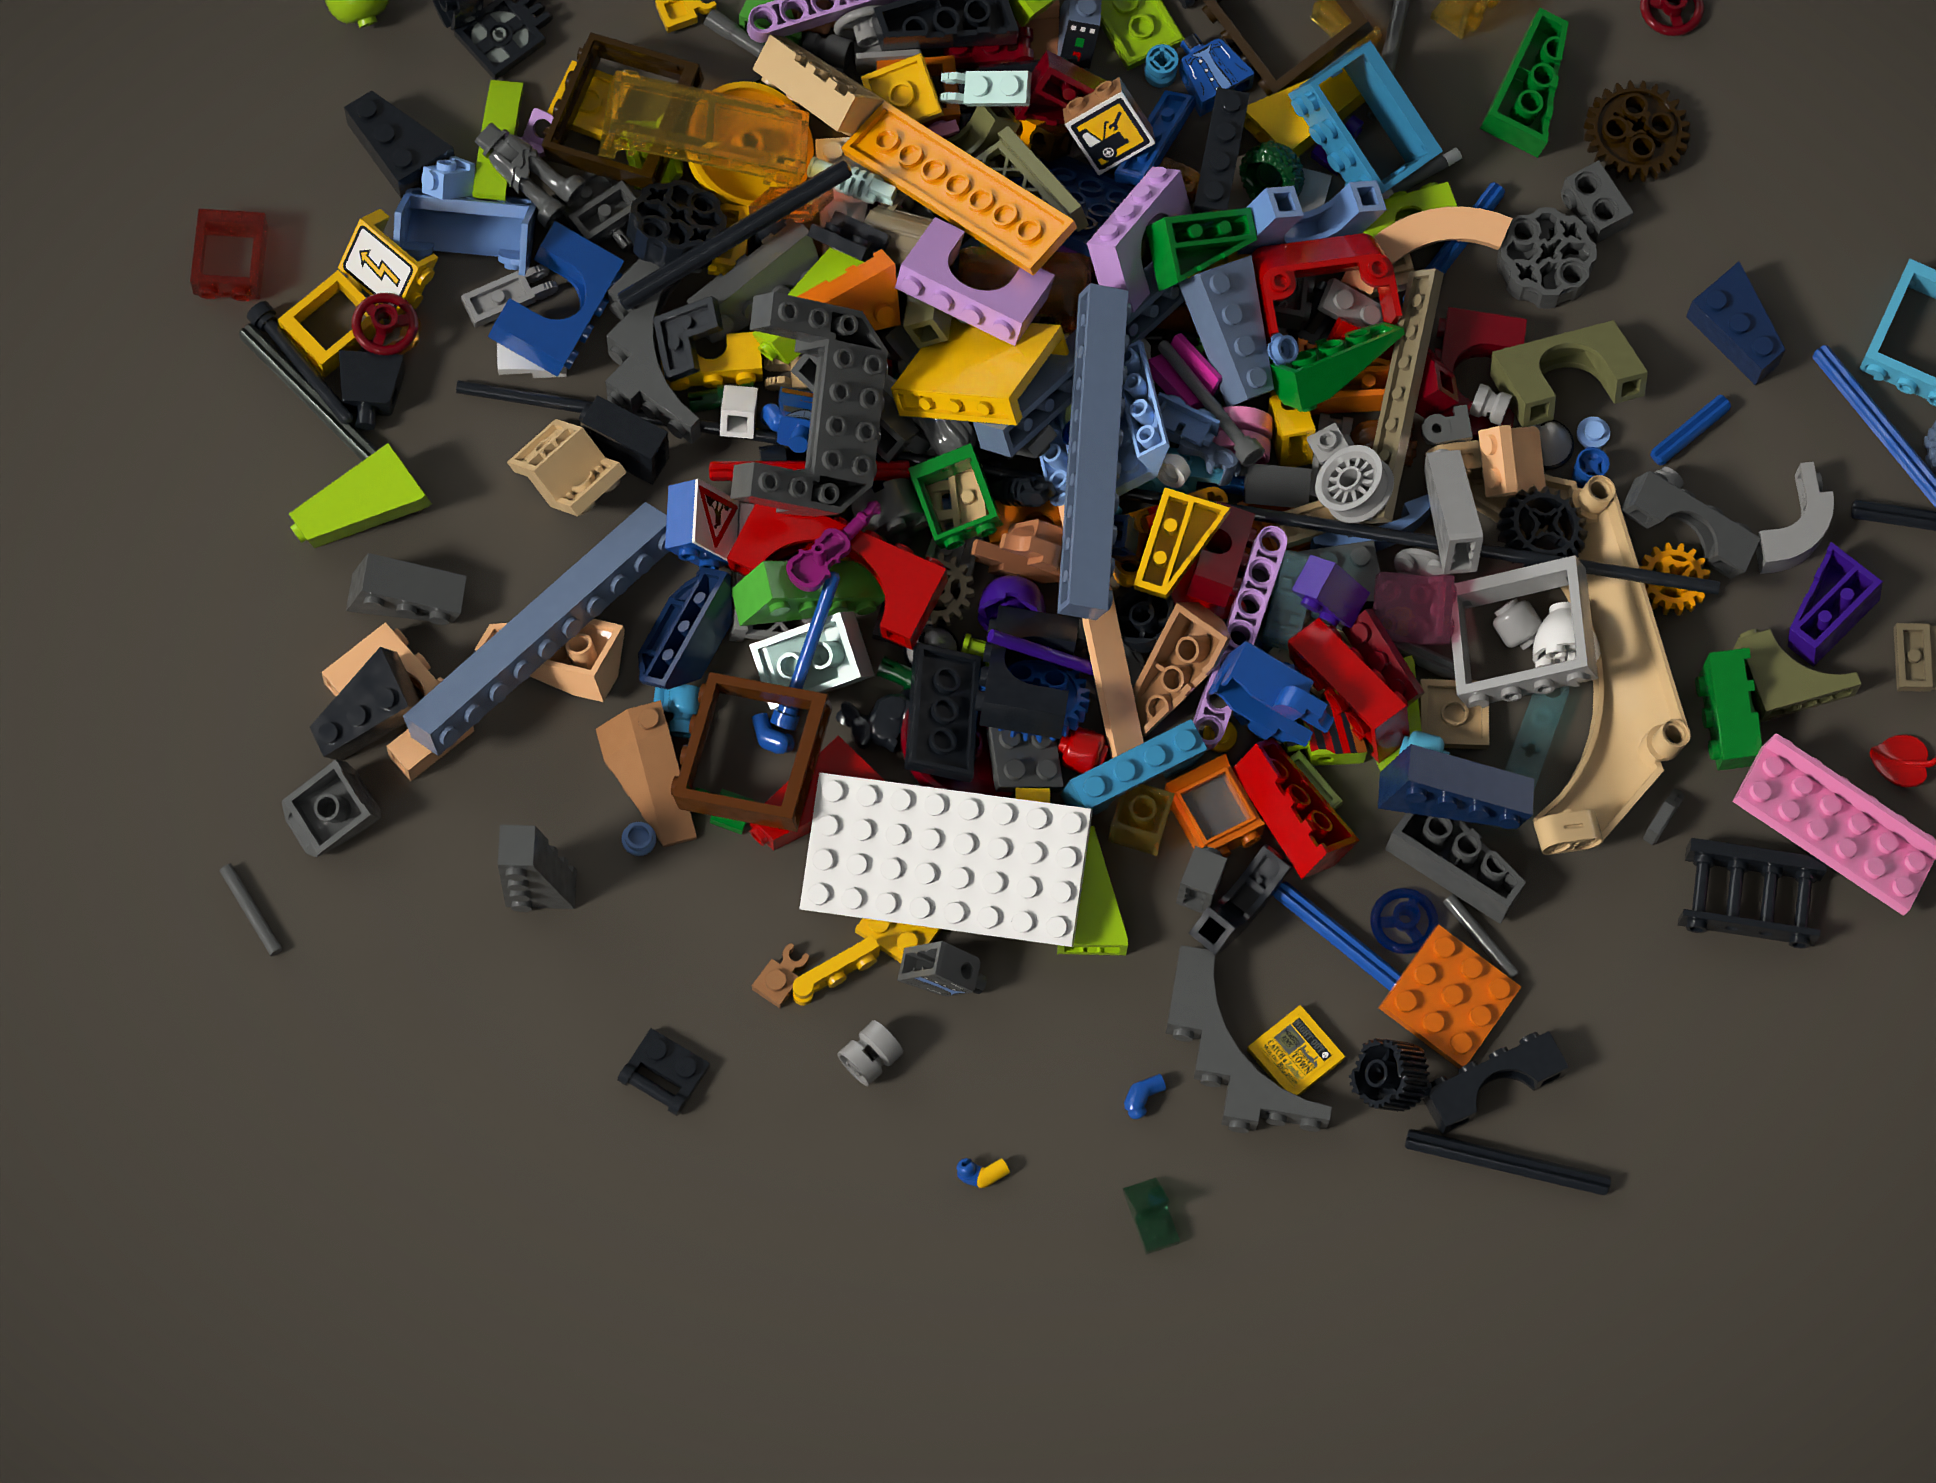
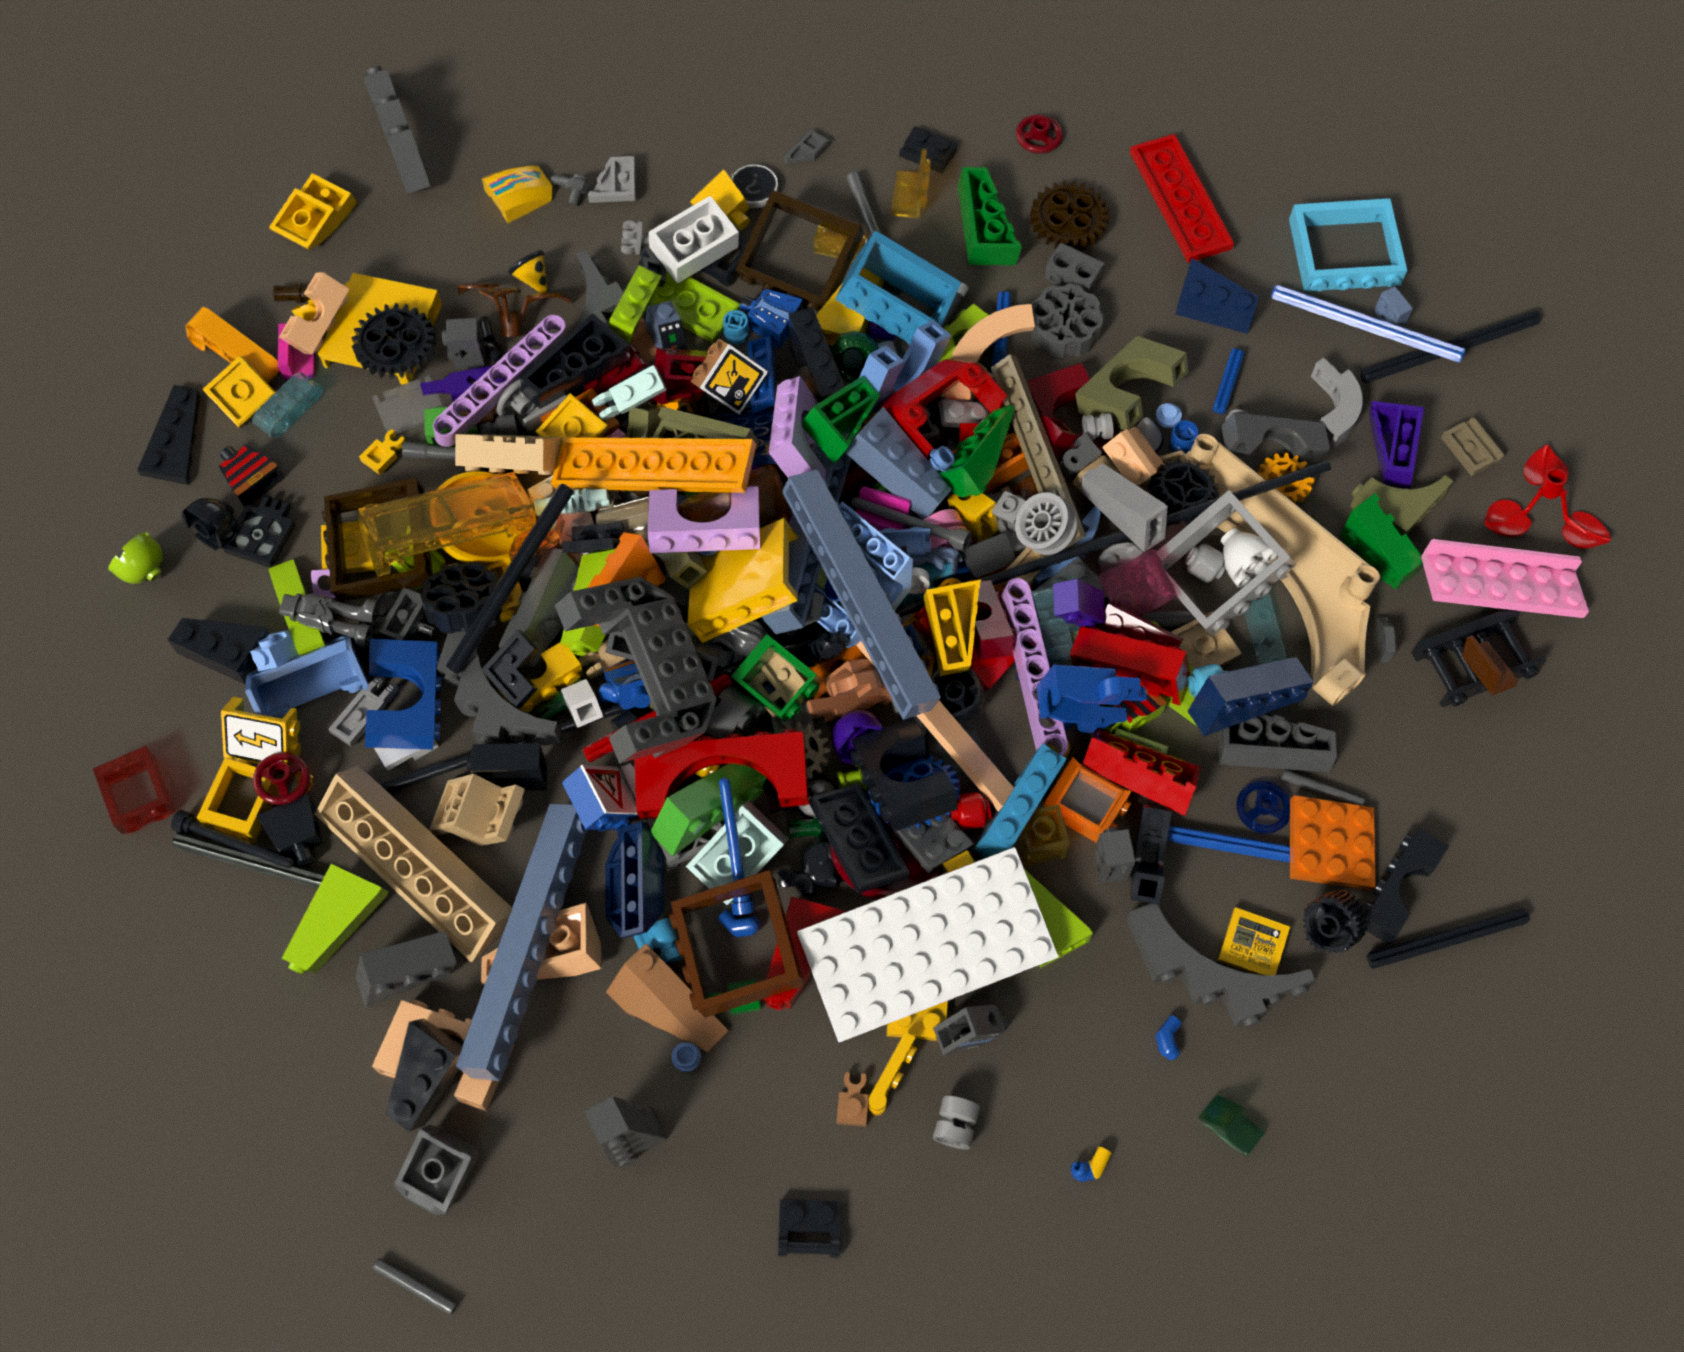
camera: 25 degrees left, 5 degrees down
(473, 486) = (414, 862): none -> tan slope
(811, 567) = (705, 784): magenta piece -> none
(1040, 651) = (902, 755): dark purple bar -> none
(1179, 661) = (1004, 707): medium nougat wedge -> none
(1748, 907) = (1488, 666): none -> reddish brown panel
(1786, 178) = (1181, 198): none -> red plate

